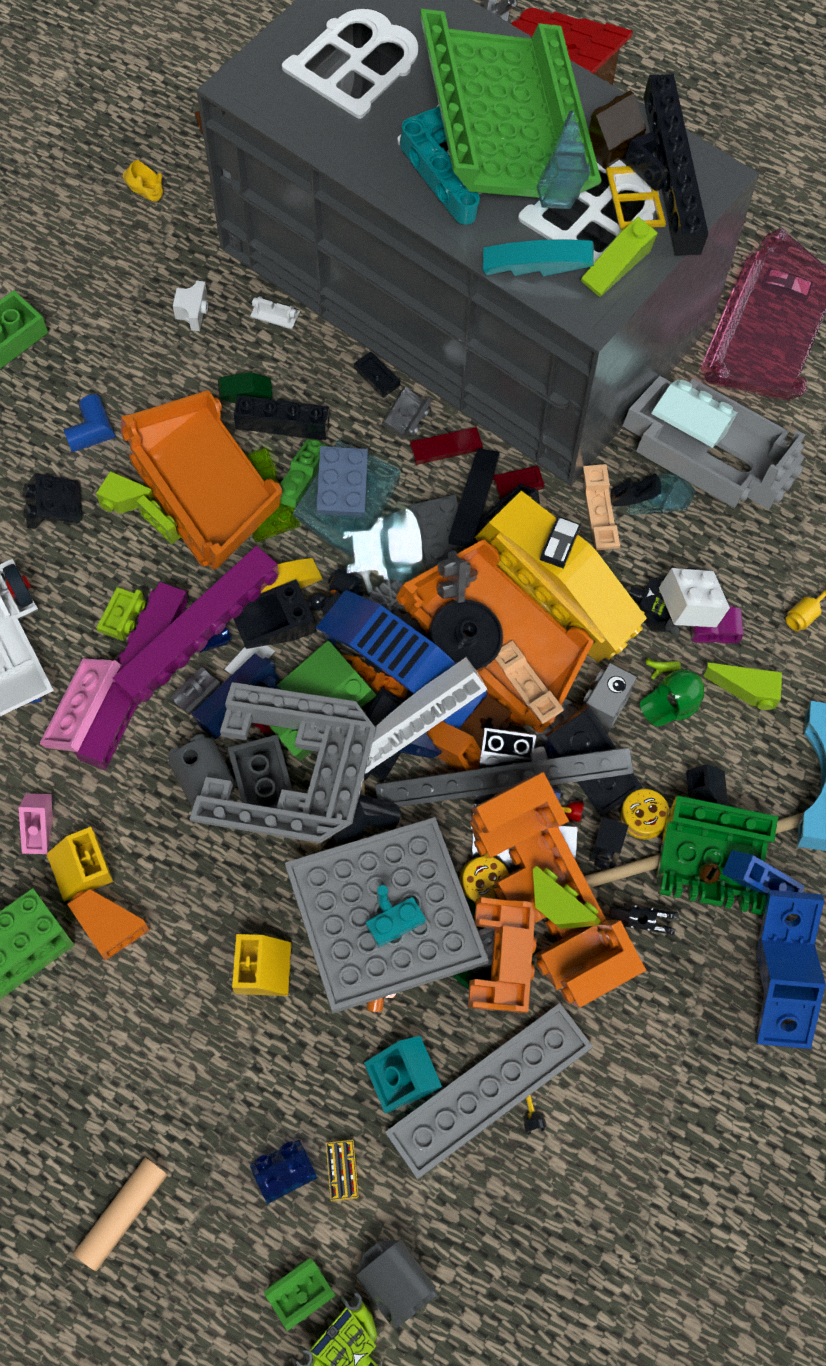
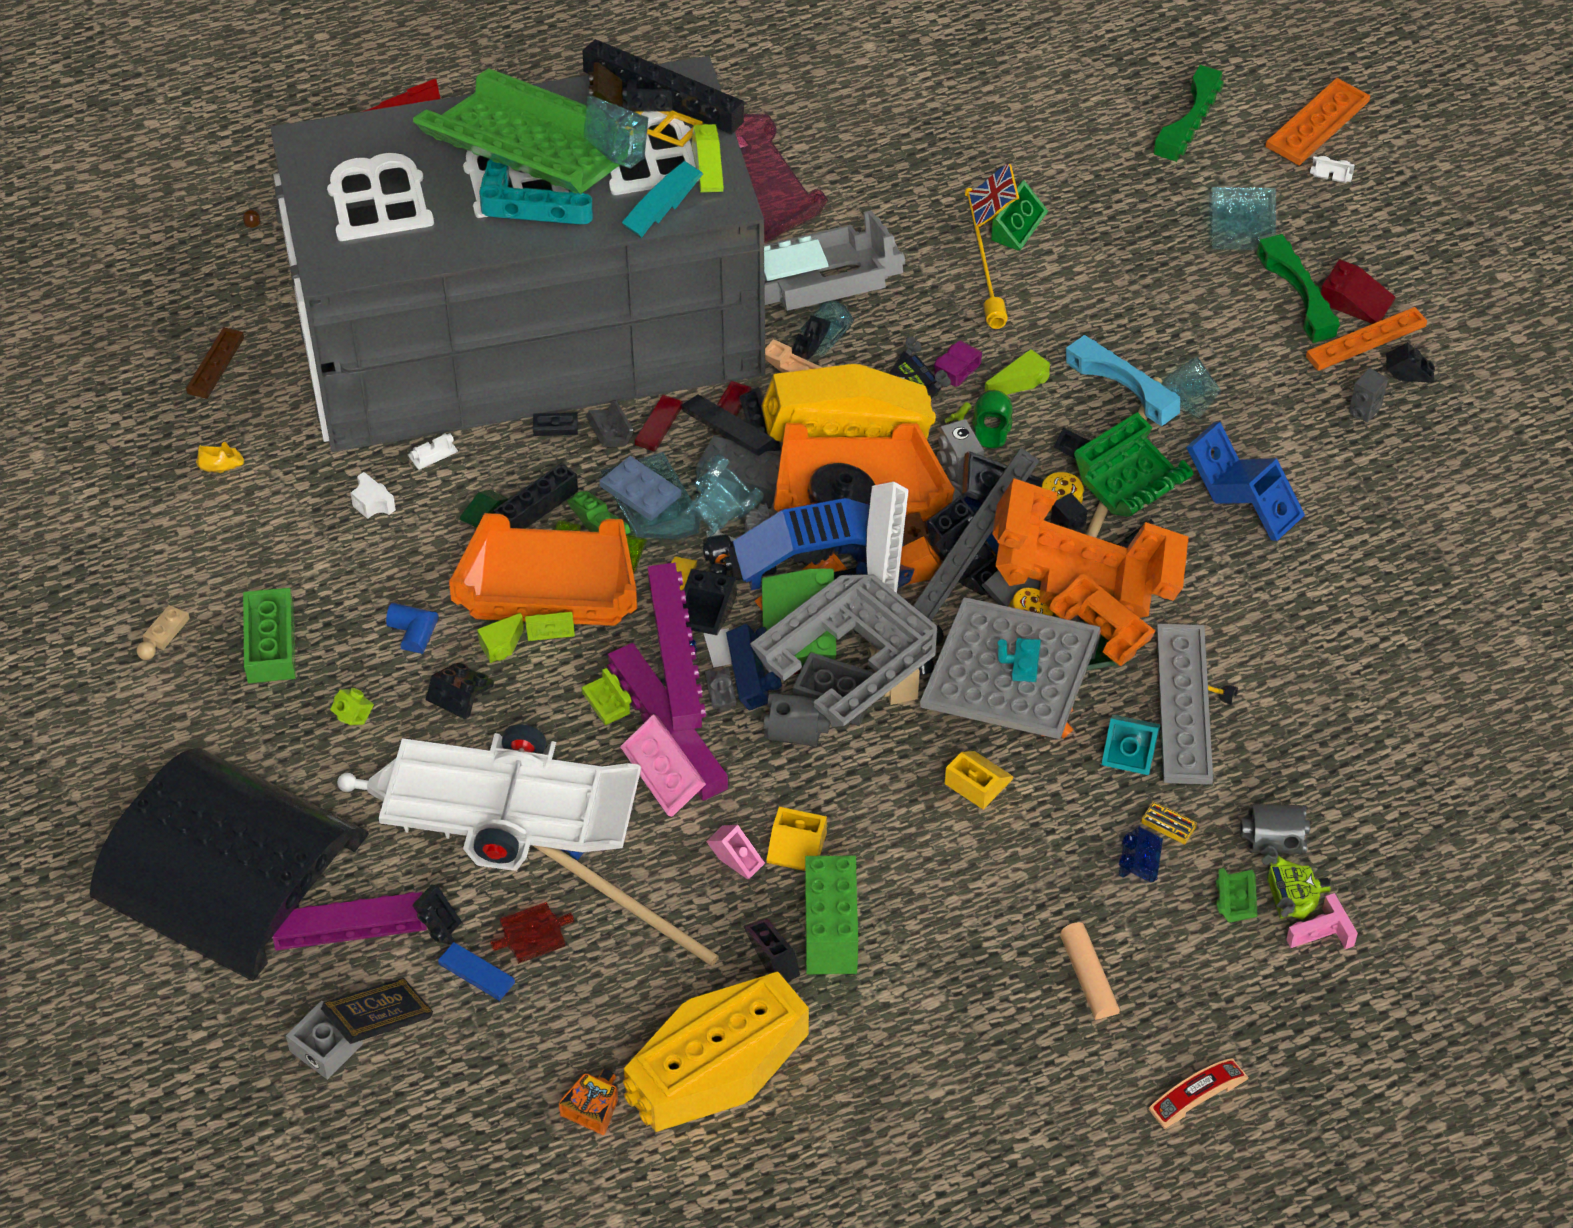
camera: 50 degrees left, 15 degrees down
(106, 923) = (866, 844): orange slope -> none
(458, 575) = (800, 458): flat silver hips -> none
(527, 683) = (920, 485): light nougat slope -> none
(560, 542) = (840, 374): slope -> none
(560, 903) = (1095, 560): lime slope -> none
(694, 597) = (934, 351): white brick -> none
(705, 869) = (1136, 480): reddish brown hinge -> none
(758, 875) = (1164, 455): blue slope -> none

